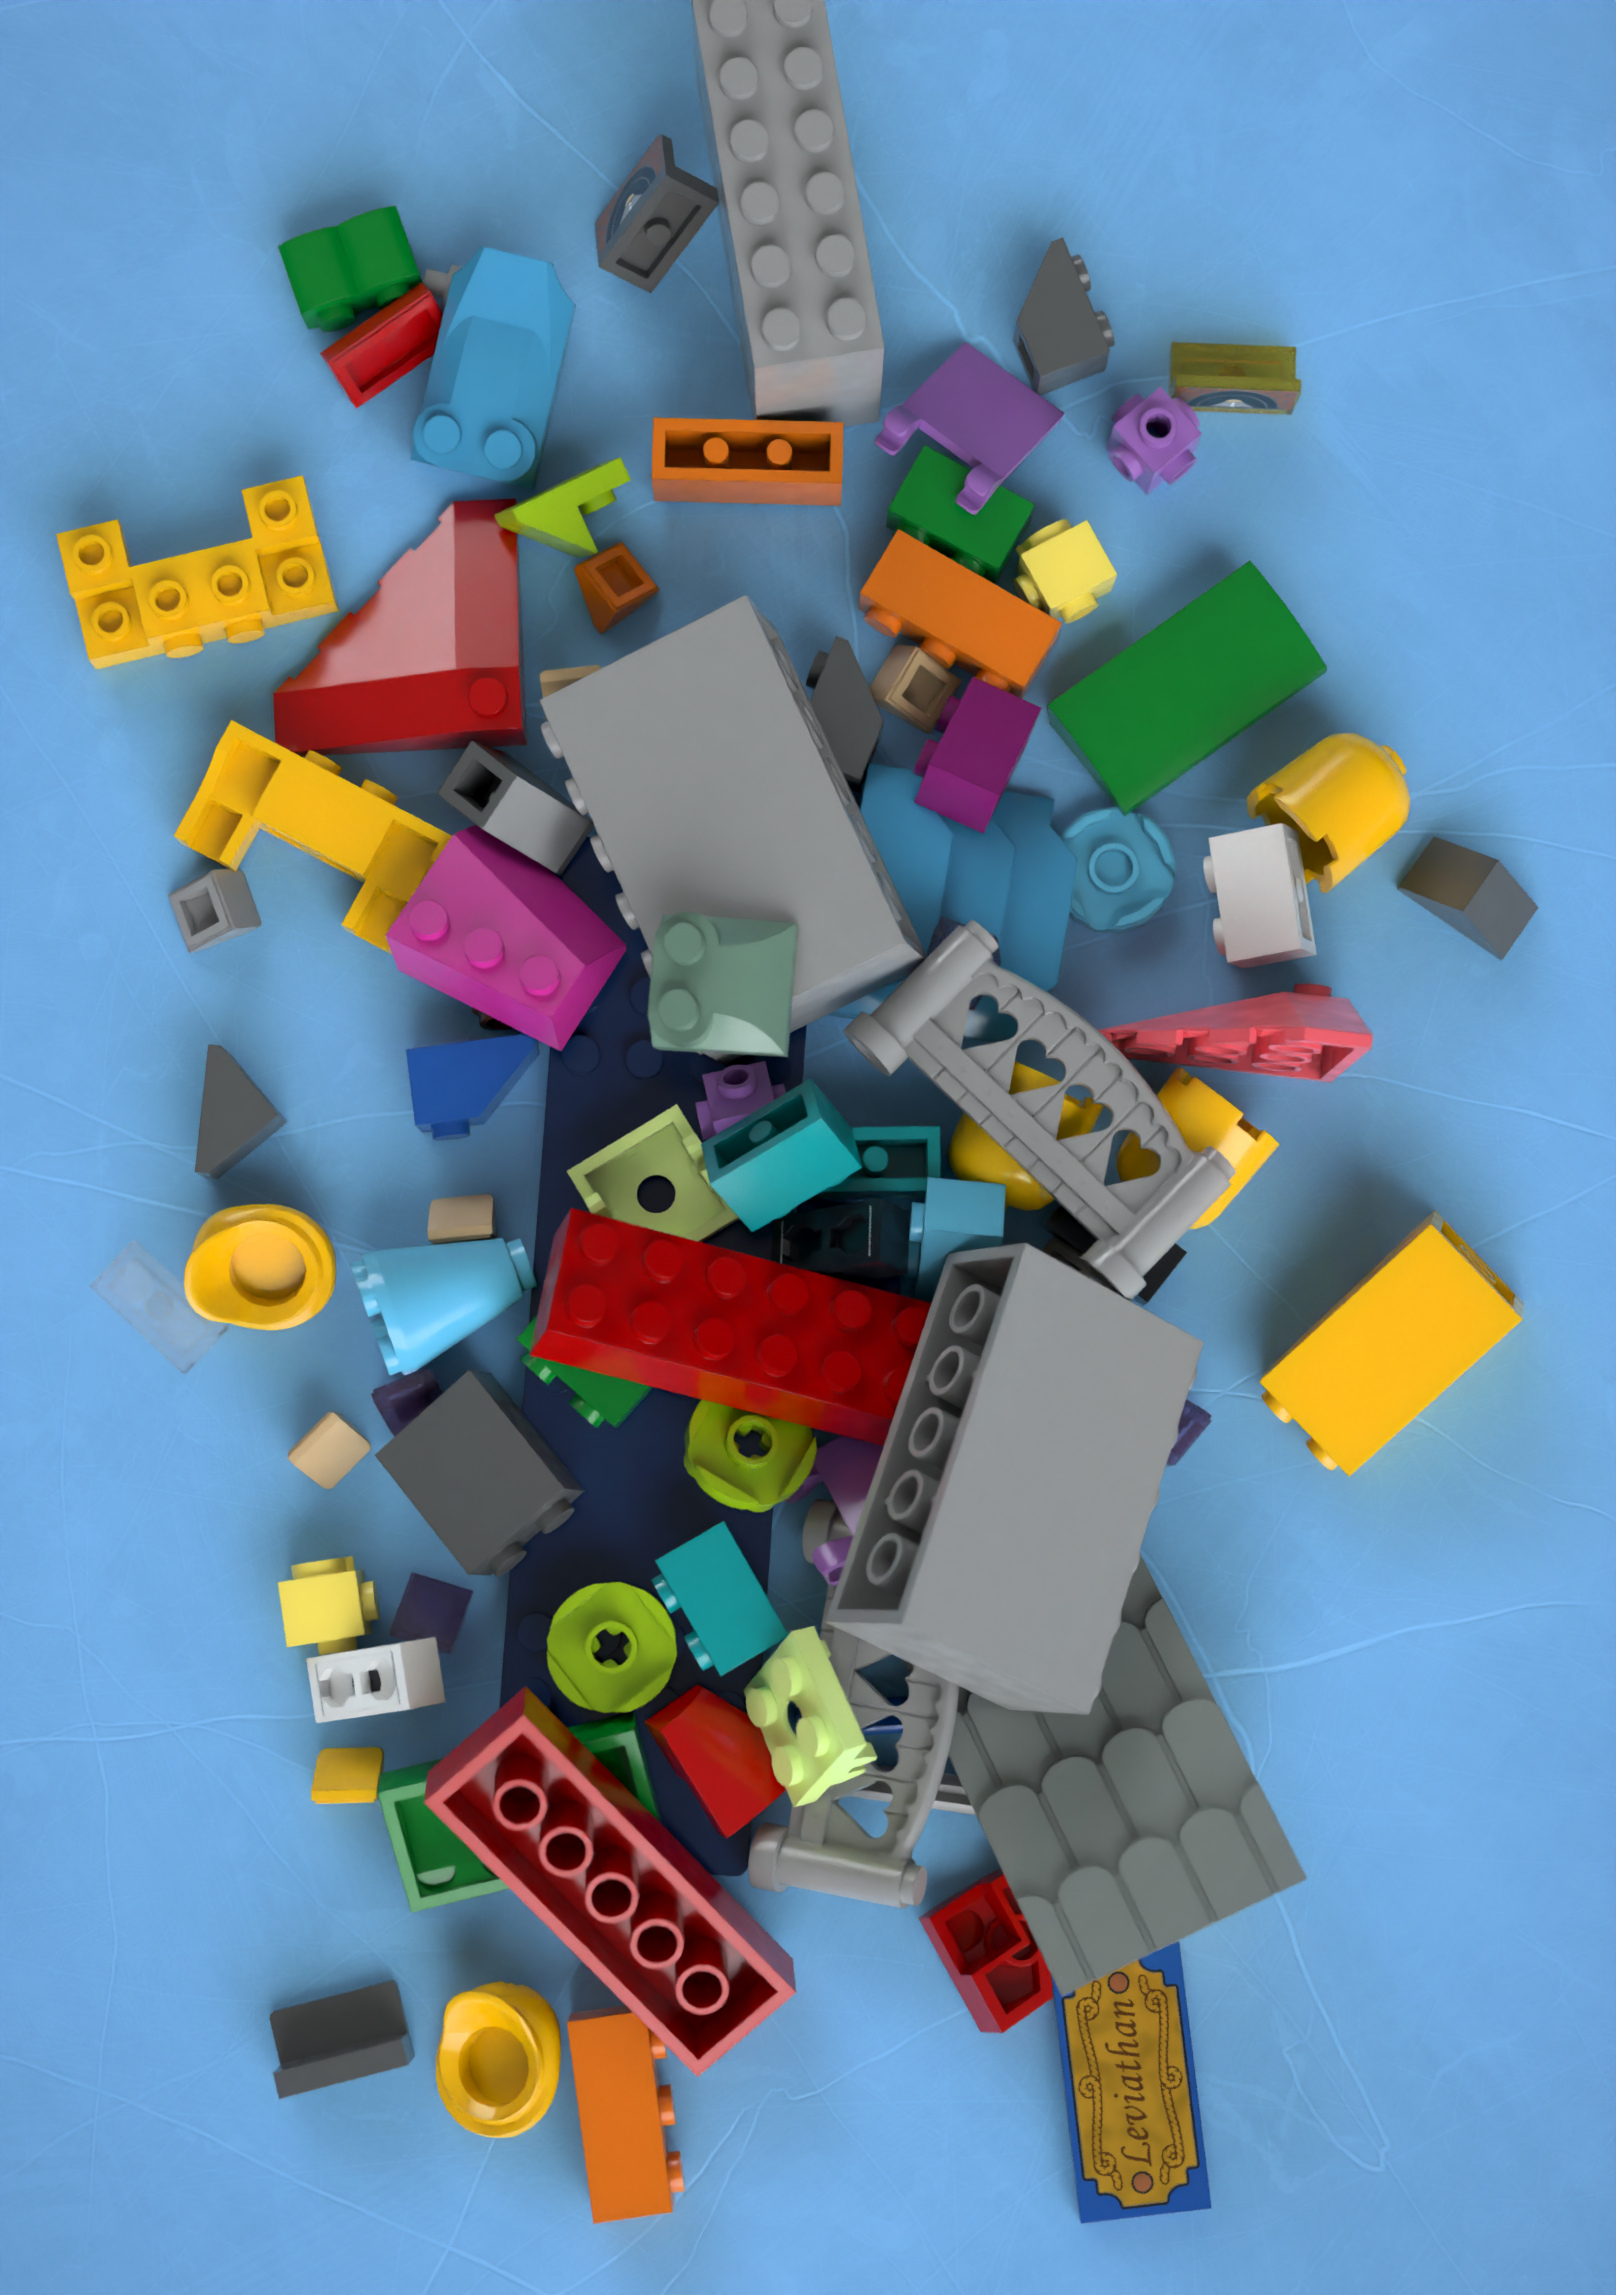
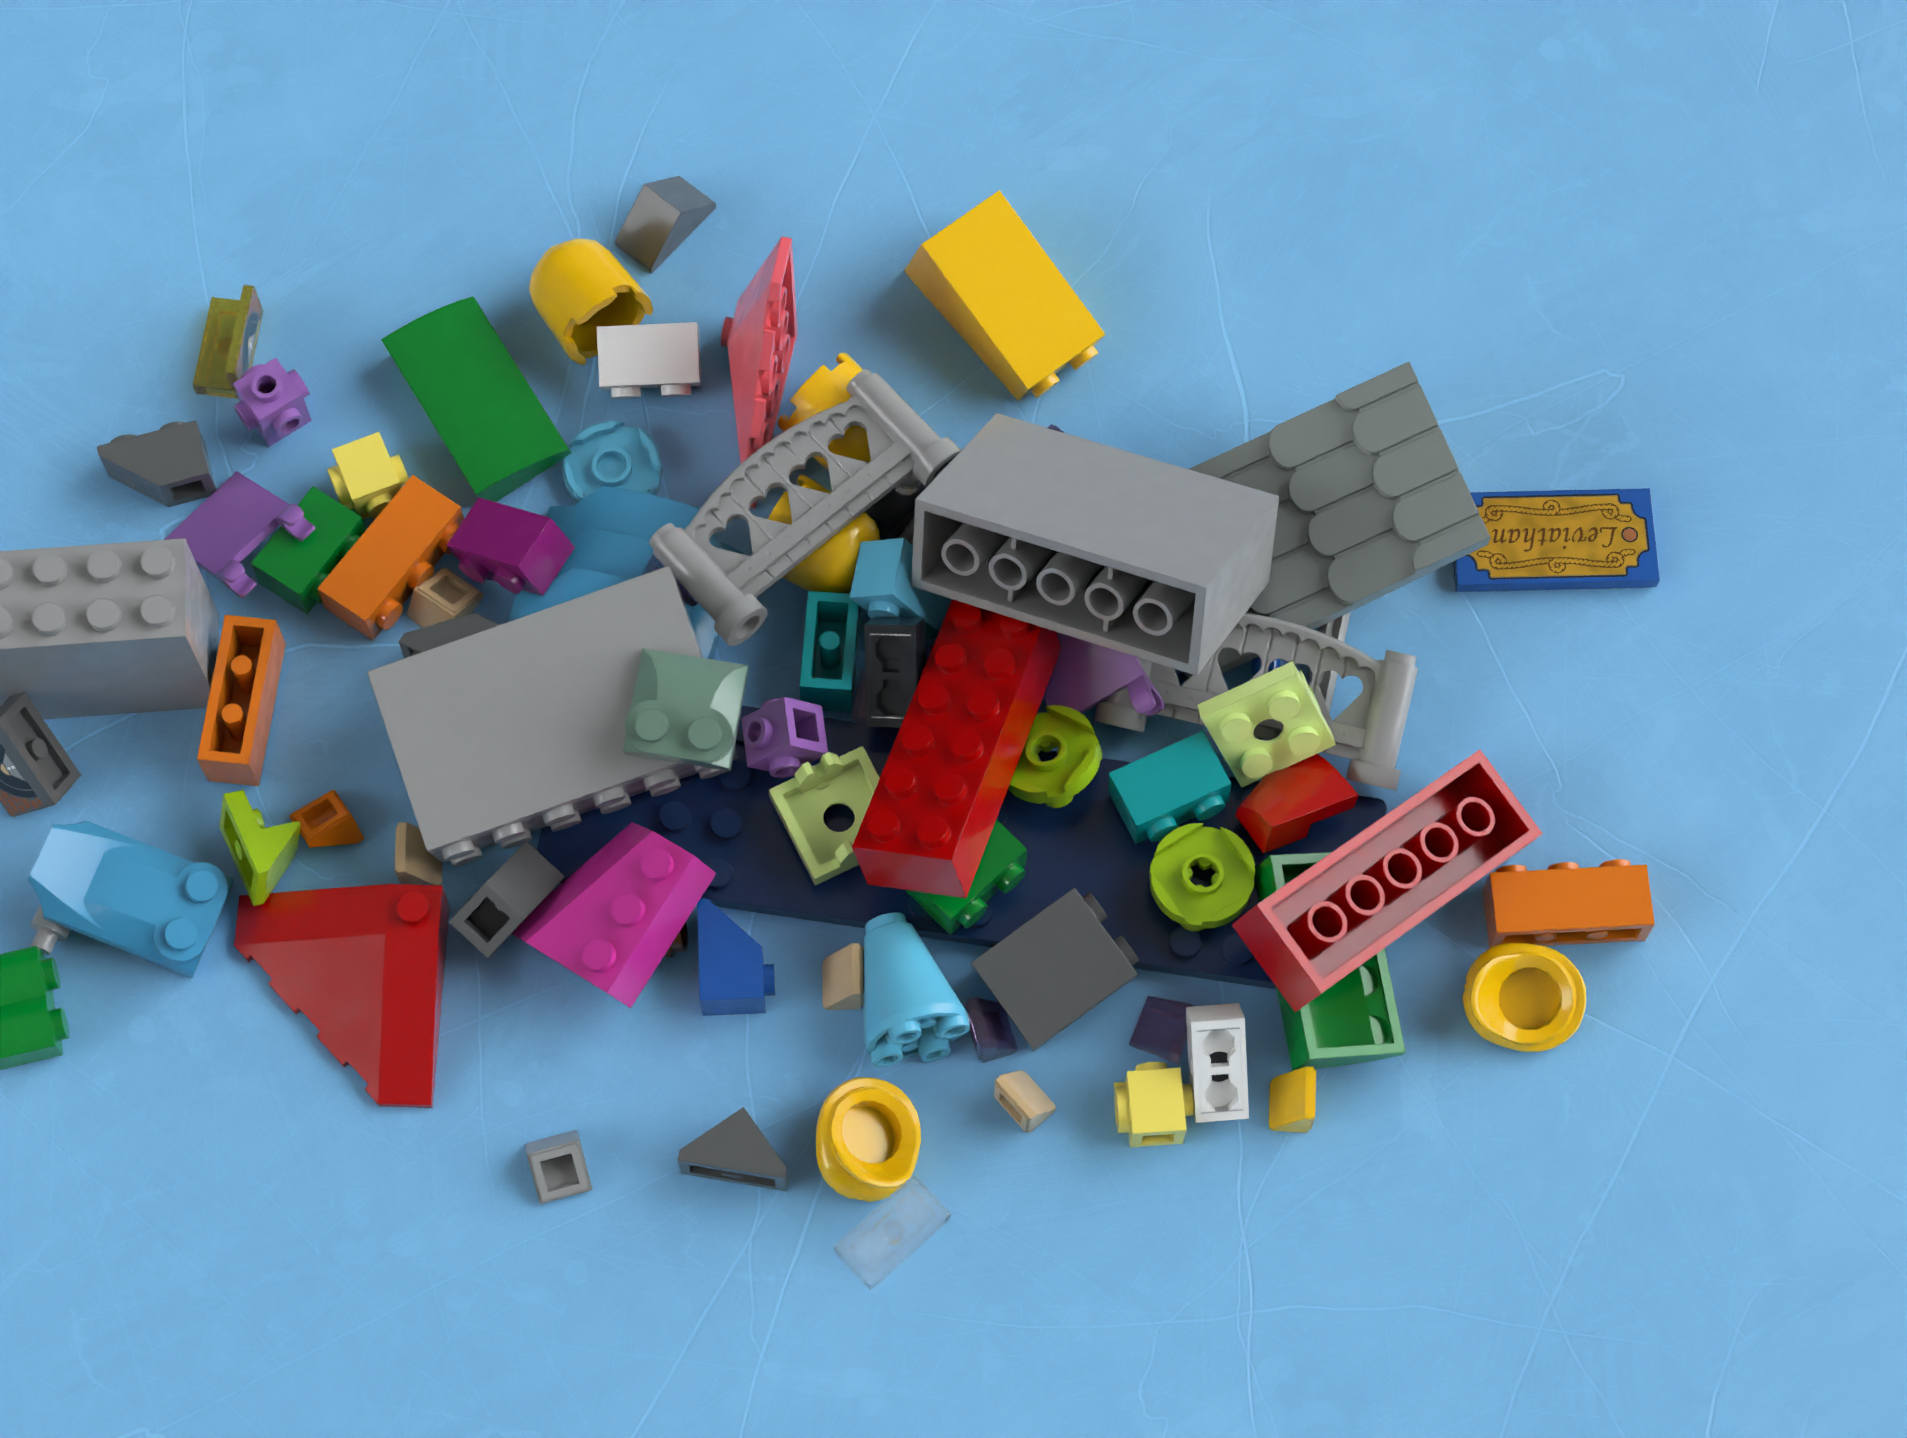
camera: 85 degrees left, 15 degrees down
(204, 593) = (286, 1148): yellow bracket -> none
(312, 808) = (495, 1056): yellow bracket -> none
(340, 2038) = (1505, 1123): dark grey panel -> none
(386, 345) = (92, 982): red tile -> none
(781, 1155) = (822, 696): teal brick -> none
(990, 1953) = (1449, 625): red slope -> none

